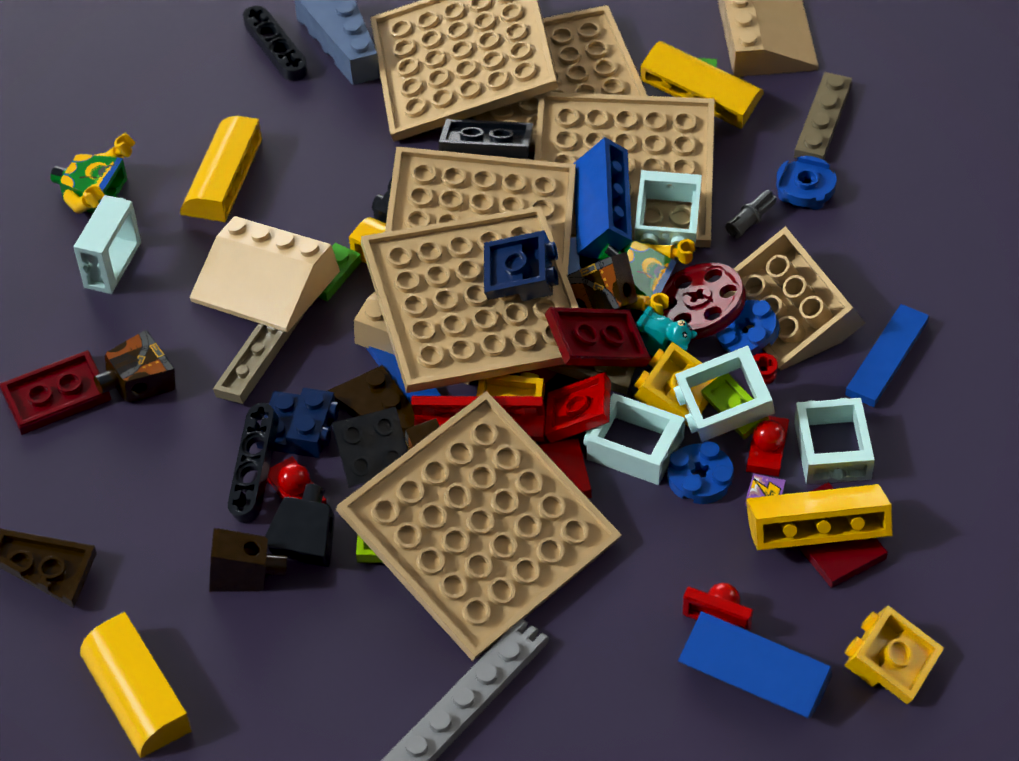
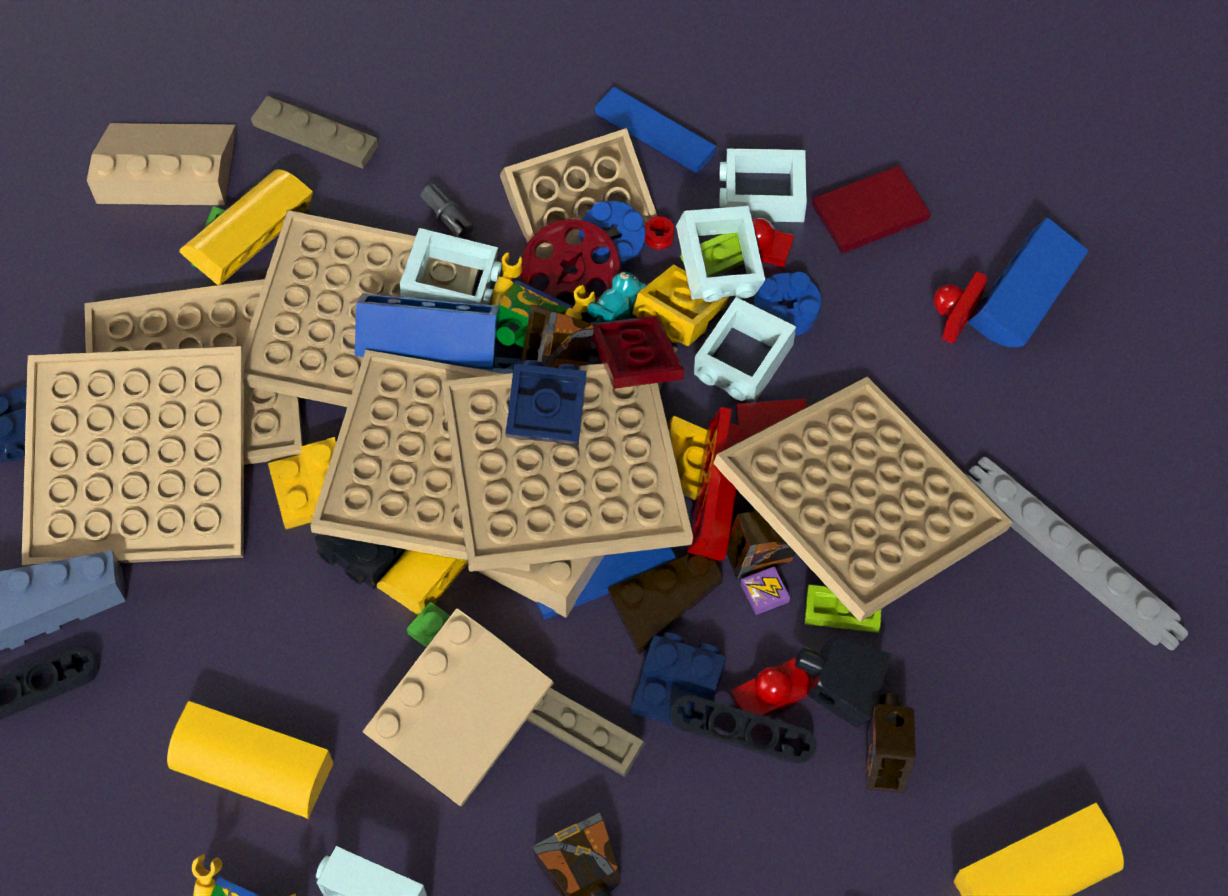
camera: 85 degrees left, 10 degrees up
(369, 444) = (746, 595): black plate -> none
(487, 138) = (295, 440): black plate -> none
(578, 407) = (707, 388): red tile -> none
(765, 486) = (817, 253): tile -> none
(809, 195) = (413, 173): blue plate -> none
(819, 517) = (867, 205): yellow brick -> none
(892, 654) = (1017, 178): yellow plate -> none

